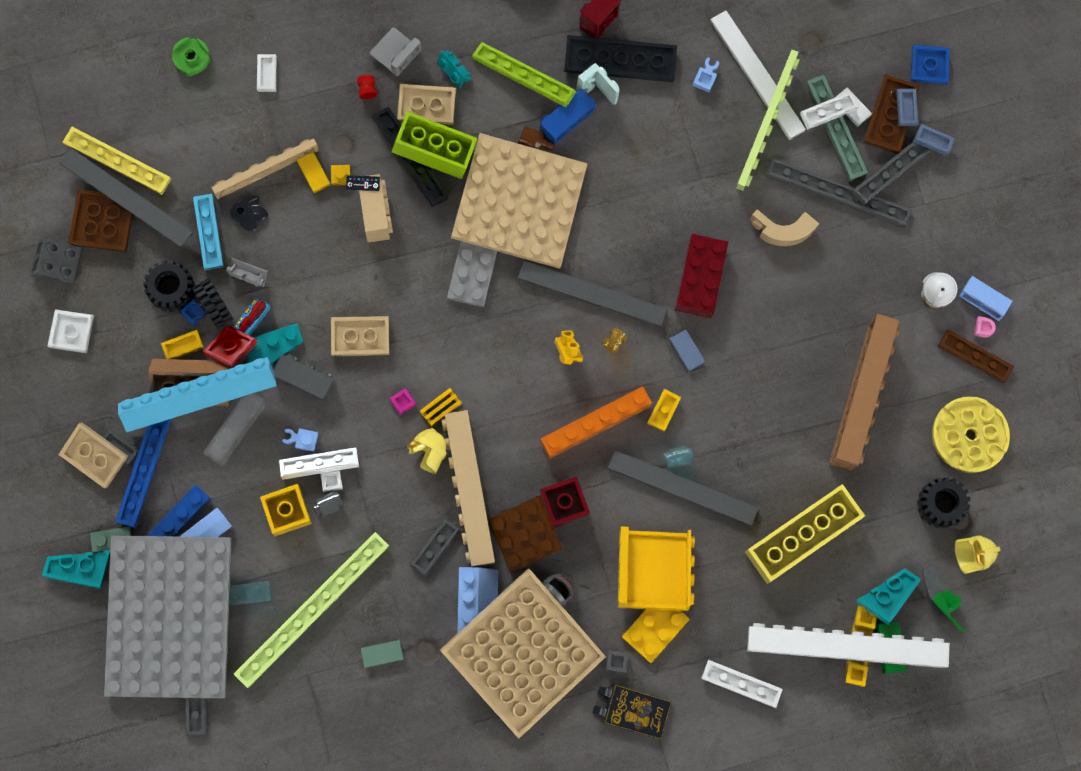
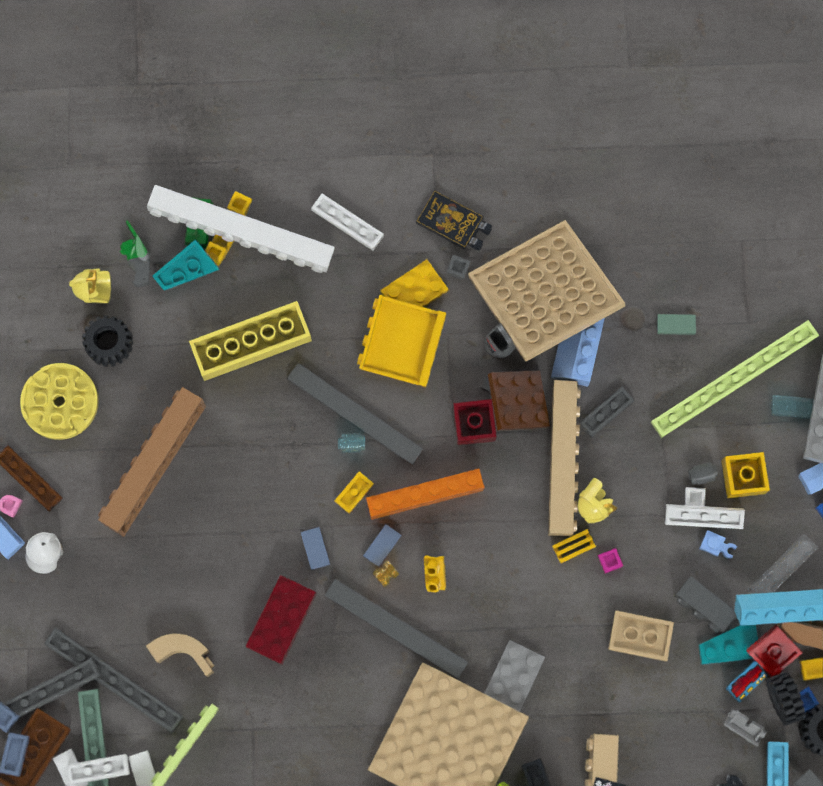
camera: 160 degrees left, 0 degrees up
(624, 367) = (382, 545): none -> sand blue tile

